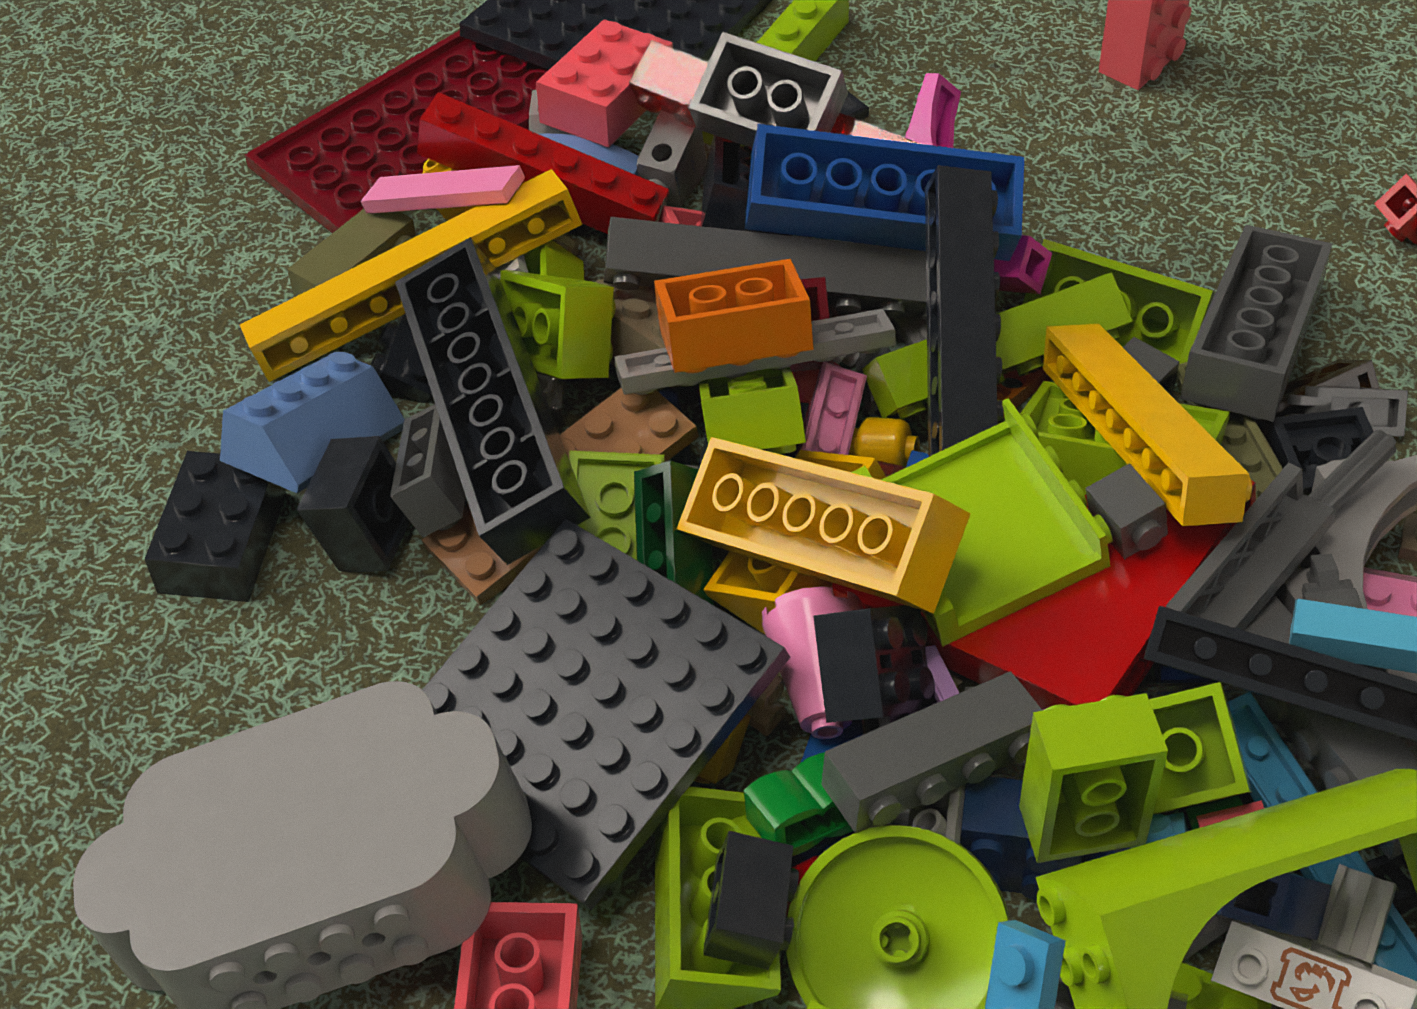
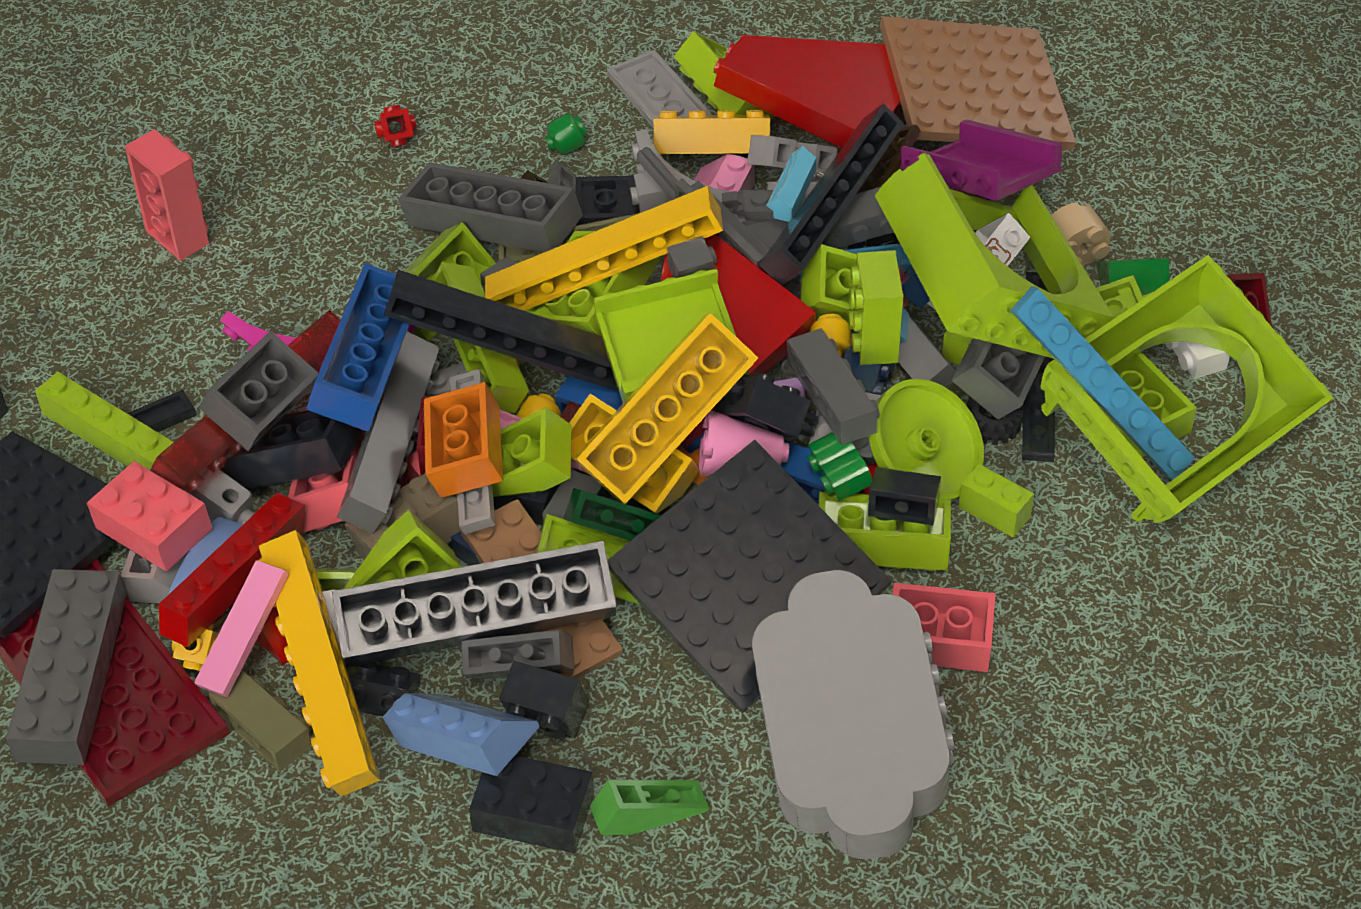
camera: 85 degrees left, 0 degrees up
(210, 653) = (641, 805): none -> bright green slope
(399, 76) = (67, 667): none -> dark grey brick

